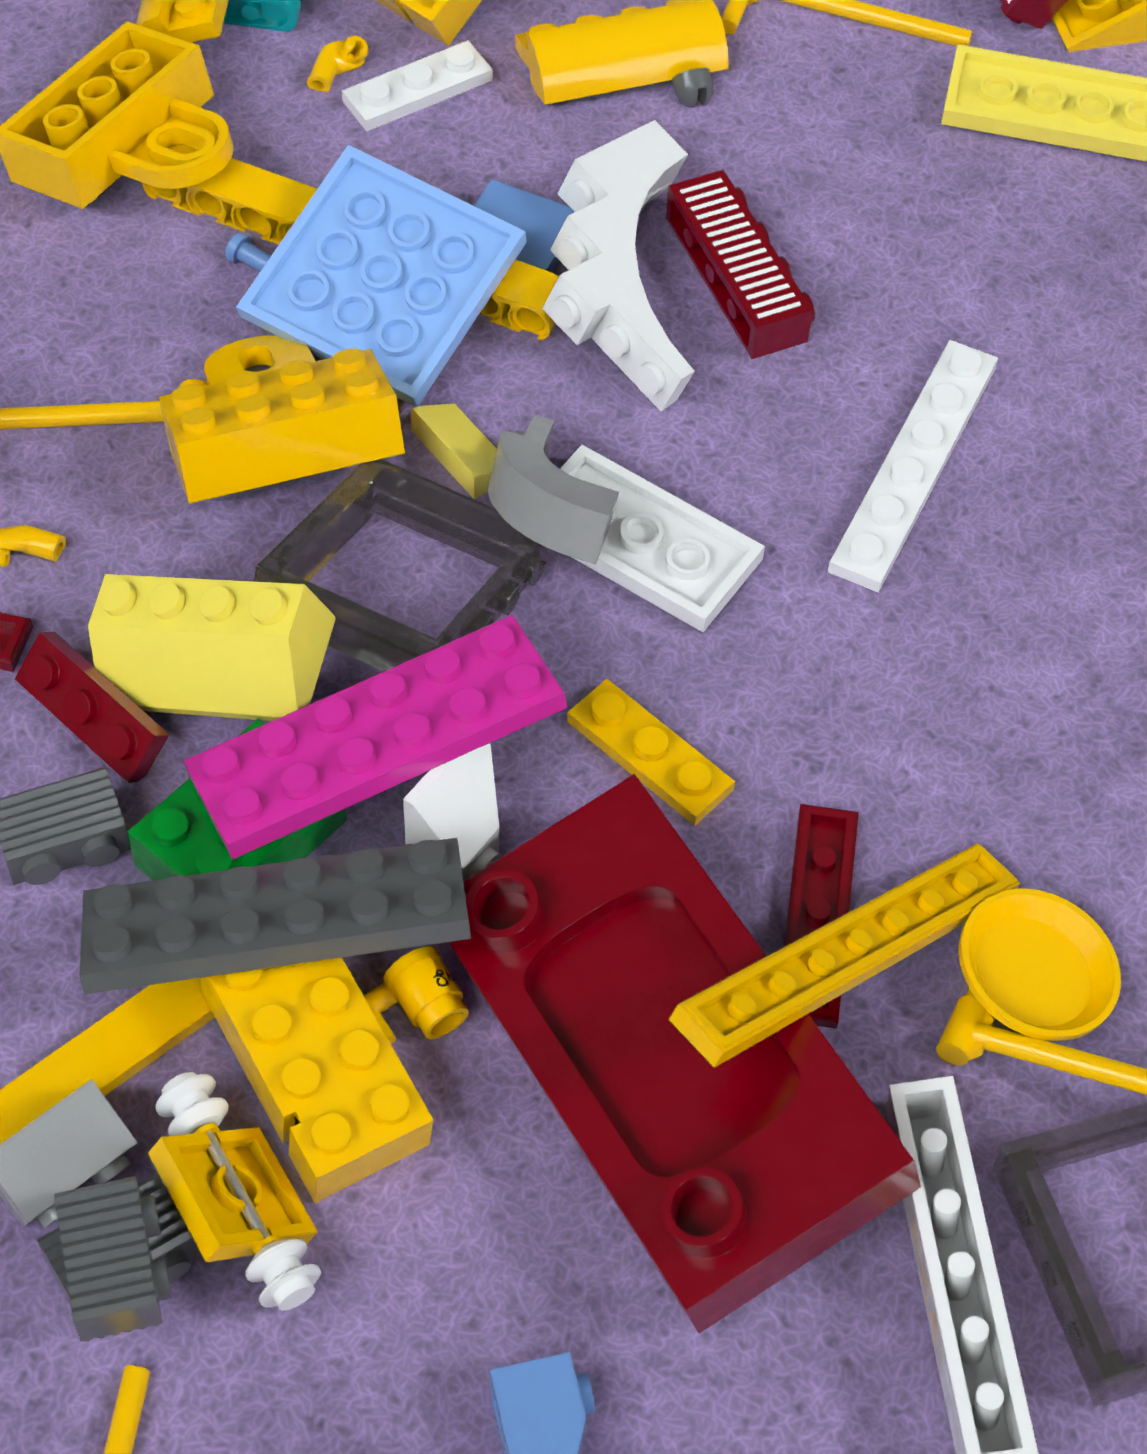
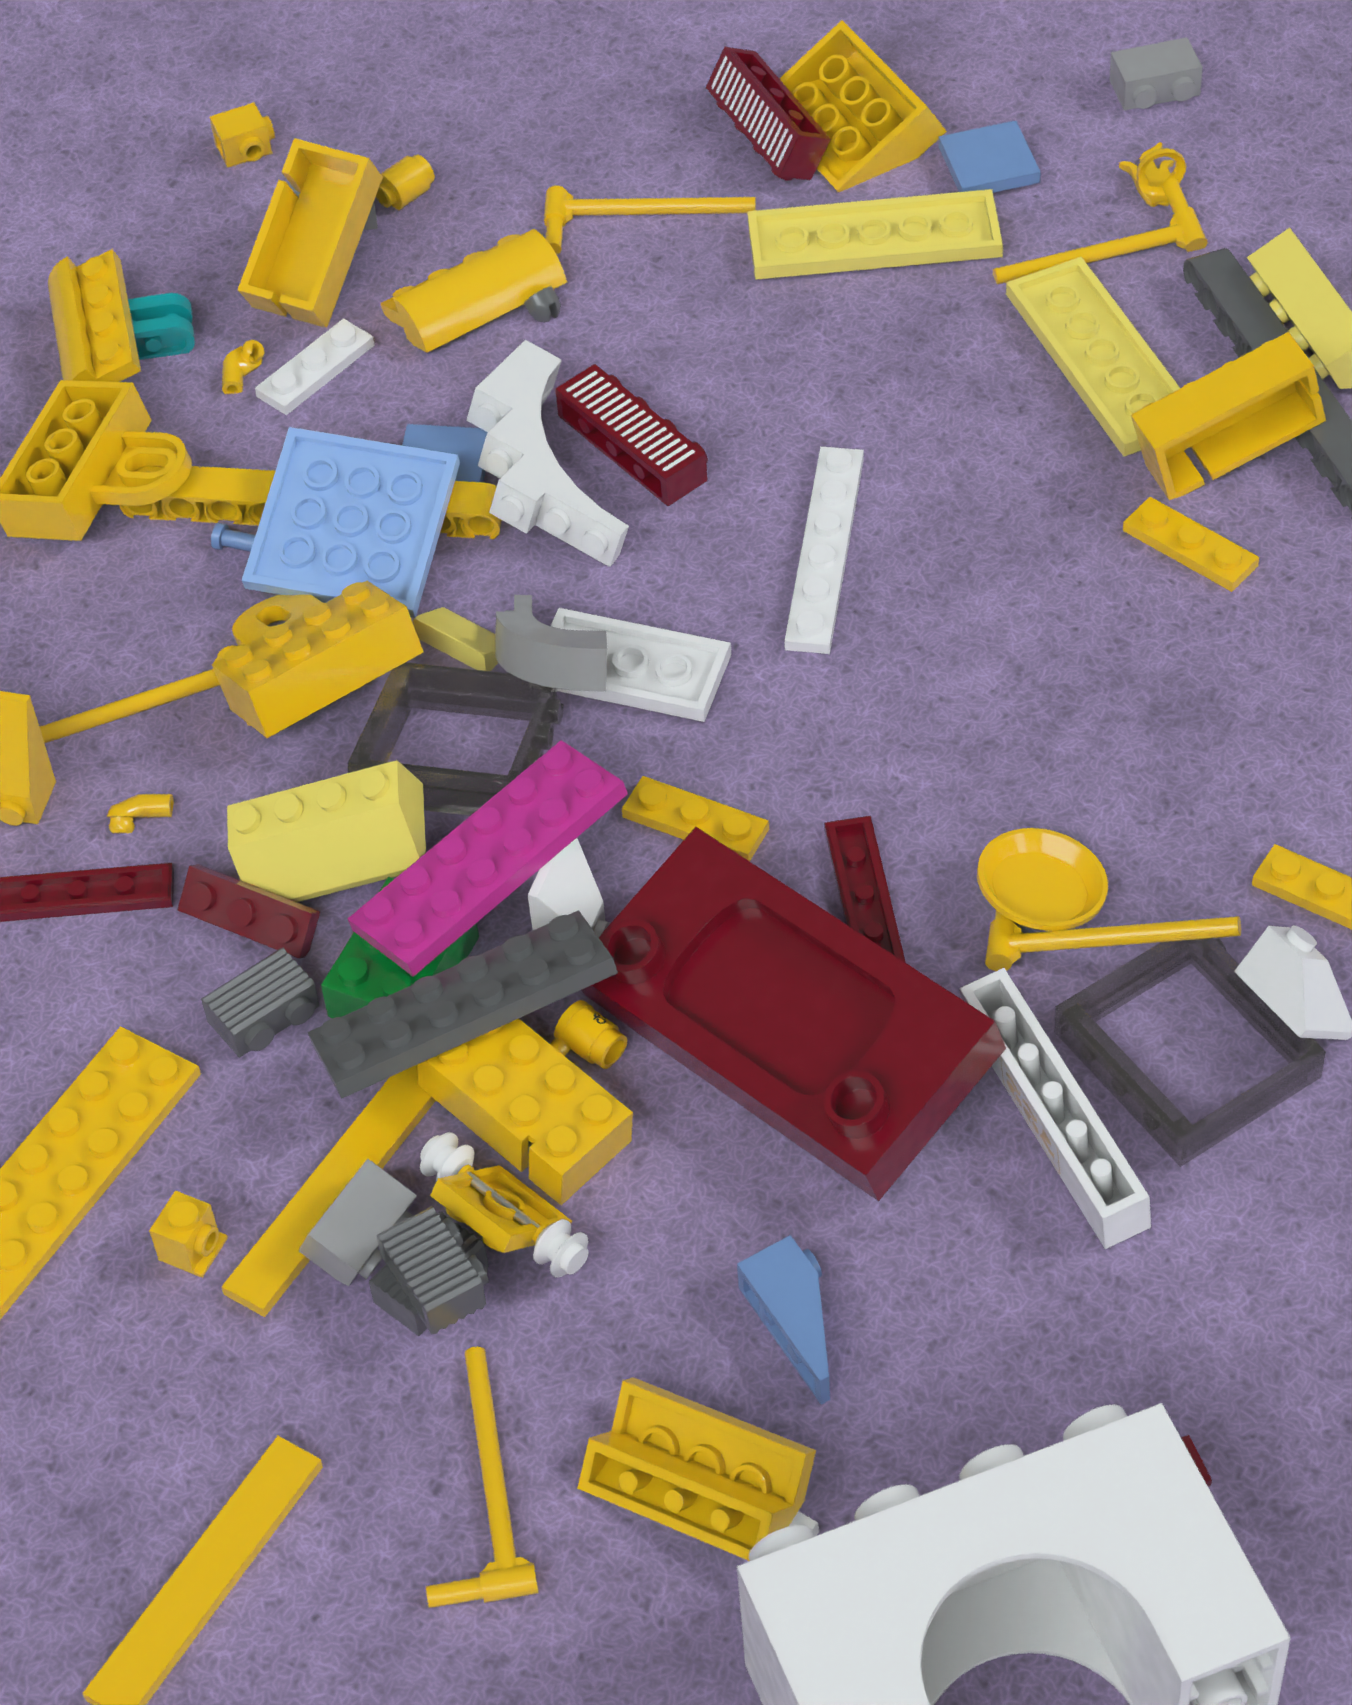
camera: 10 degrees left, 5 degrees down
(838, 956) = (894, 905): yellow tile -> none

